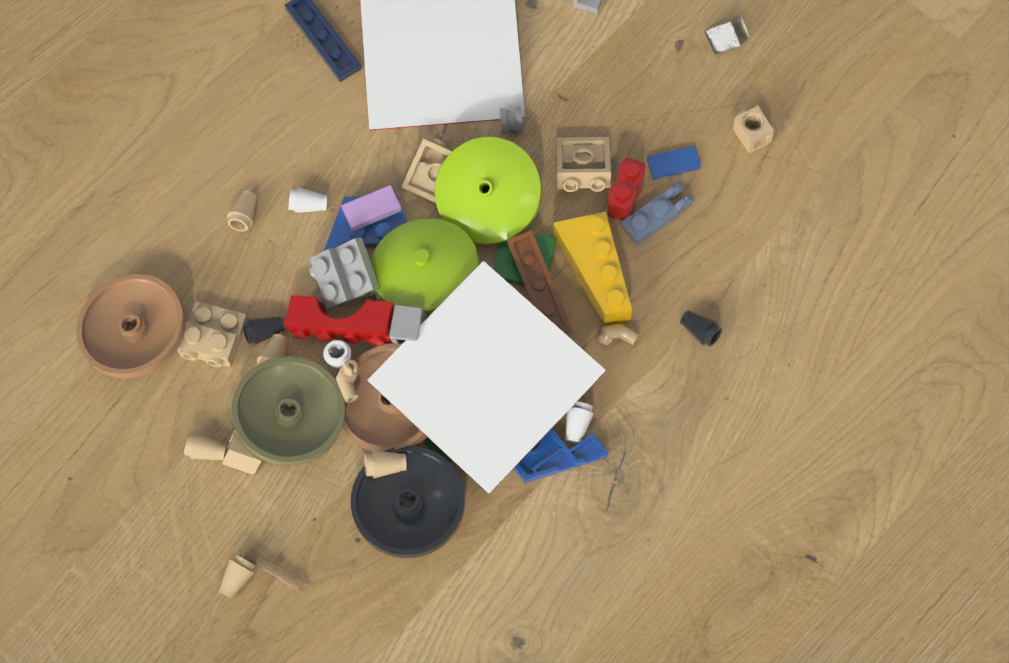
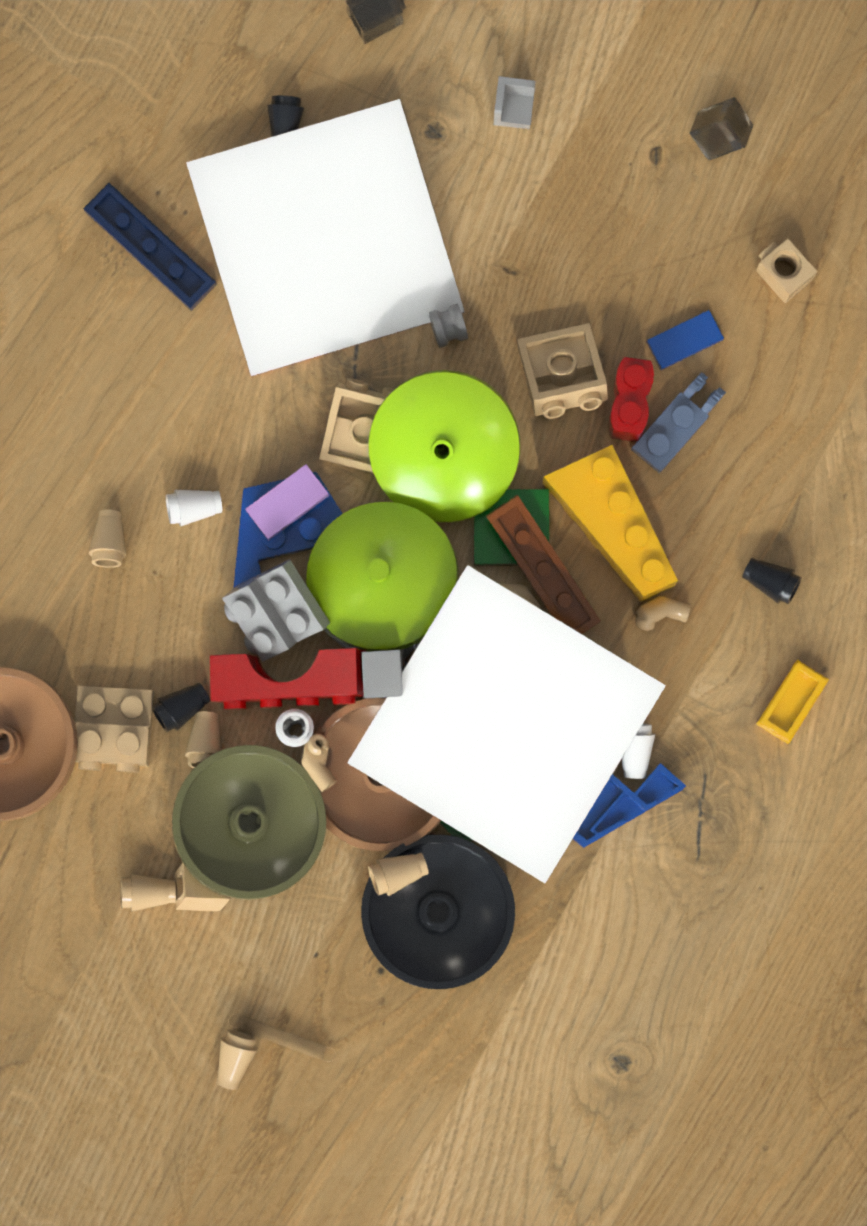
camera: 15 degrees left, 15 degrees up
(698, 414) = (792, 701): none -> yellow tile

